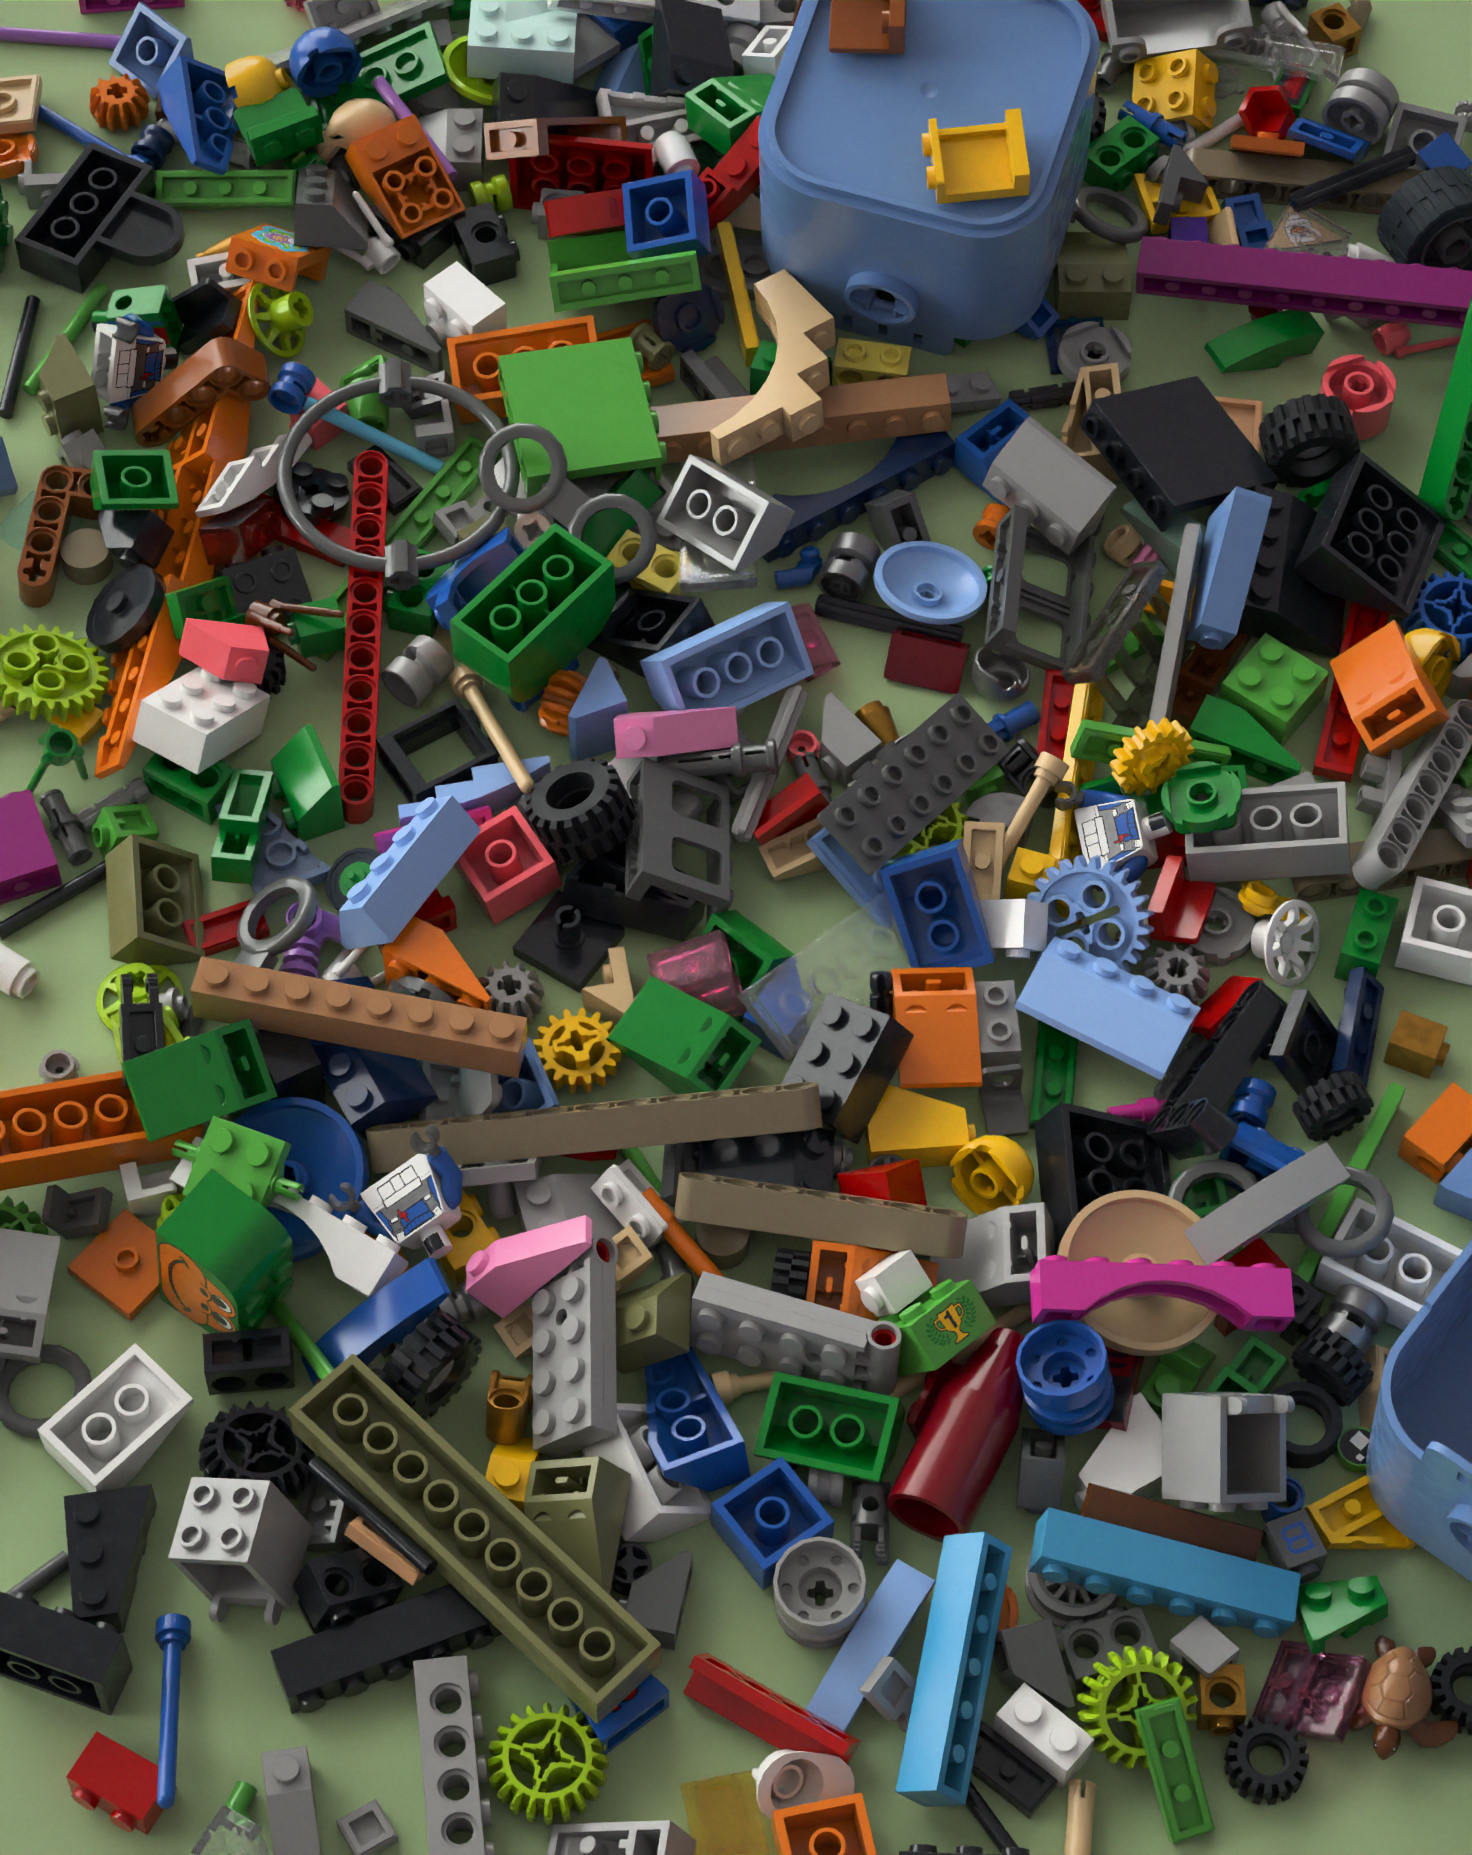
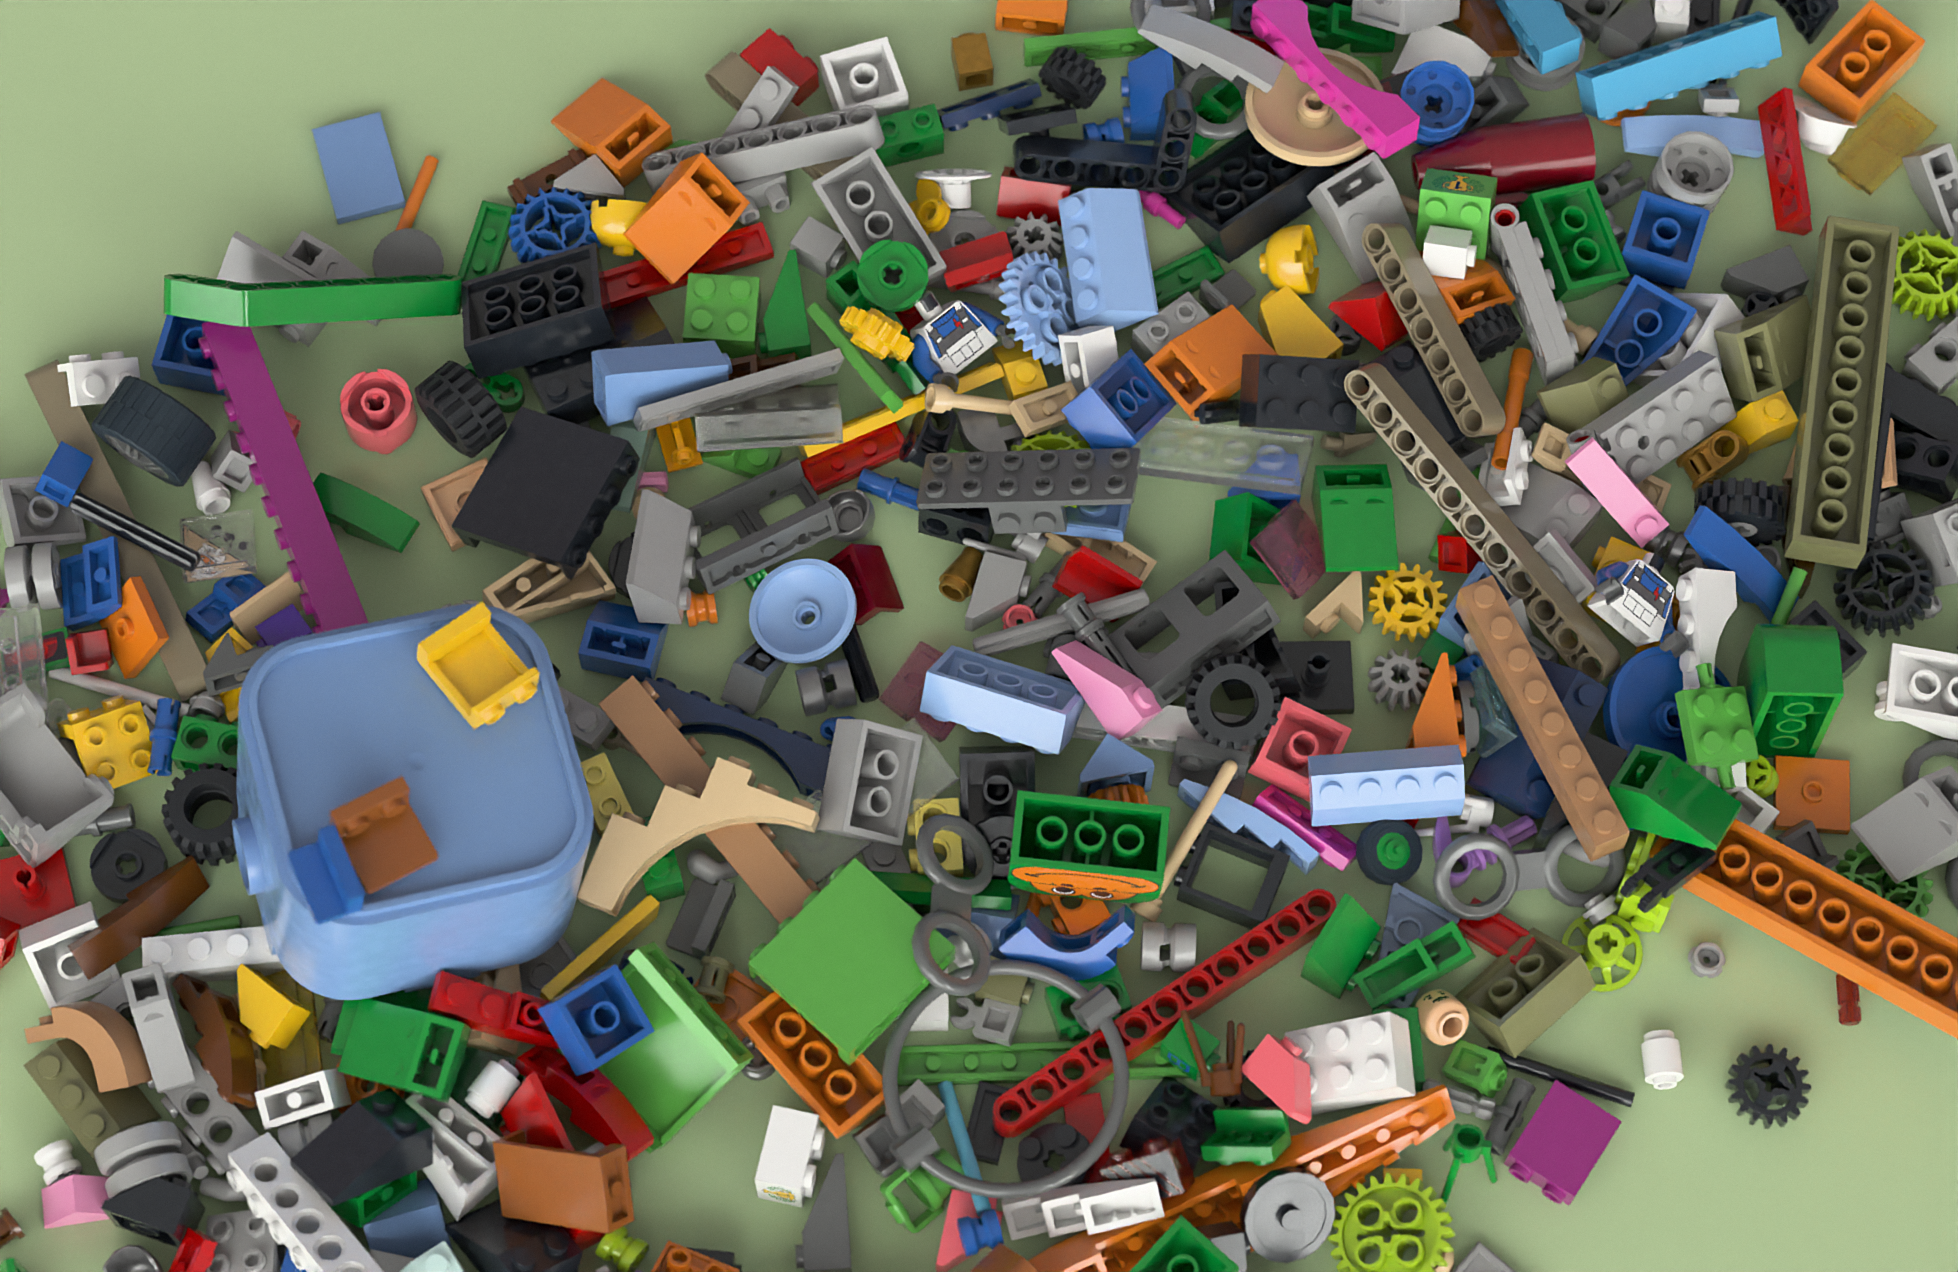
camera: 125 degrees left, 10 degrees up
(186, 823) = (1442, 1017): none -> light nougat head
(484, 244) = (689, 1190): black brick -> none

